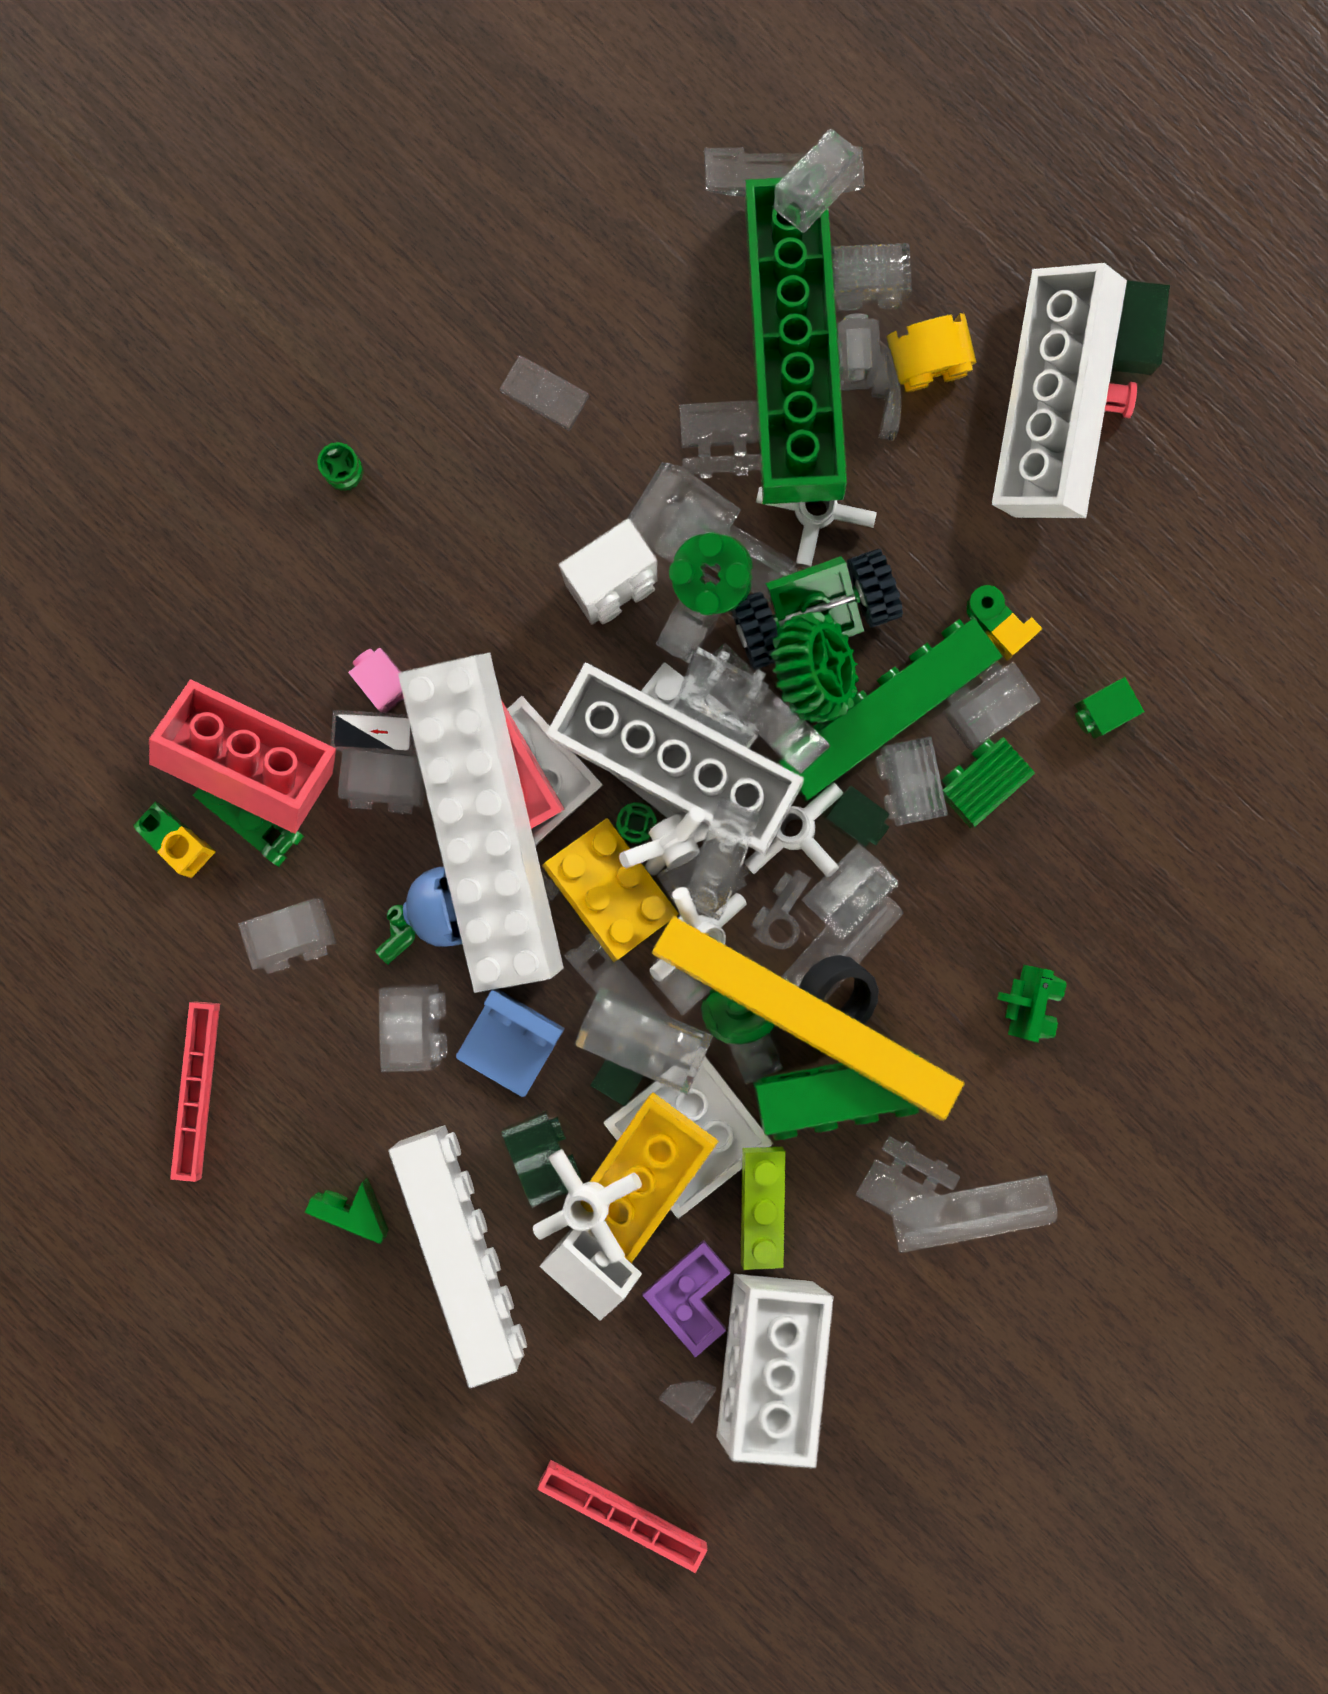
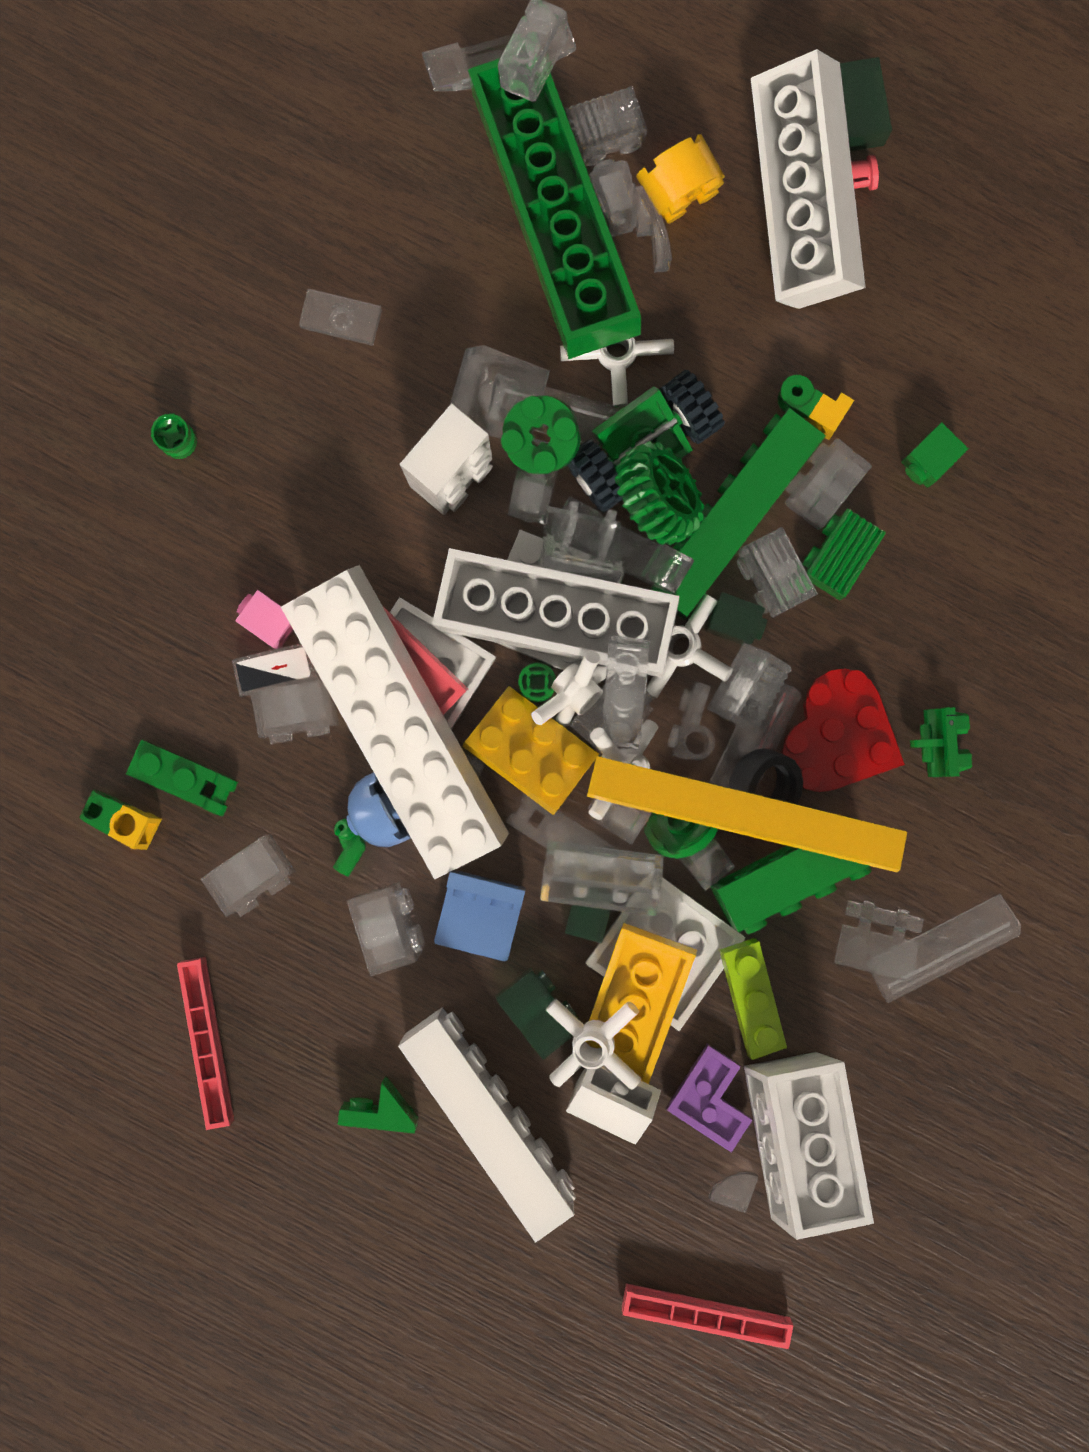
camera: 20 degrees left, 0 degrees up
(241, 756) = (159, 725): coral brick -> none
(720, 425) = (507, 301): clear plate -> none
(933, 965) = (842, 733): none -> red plate

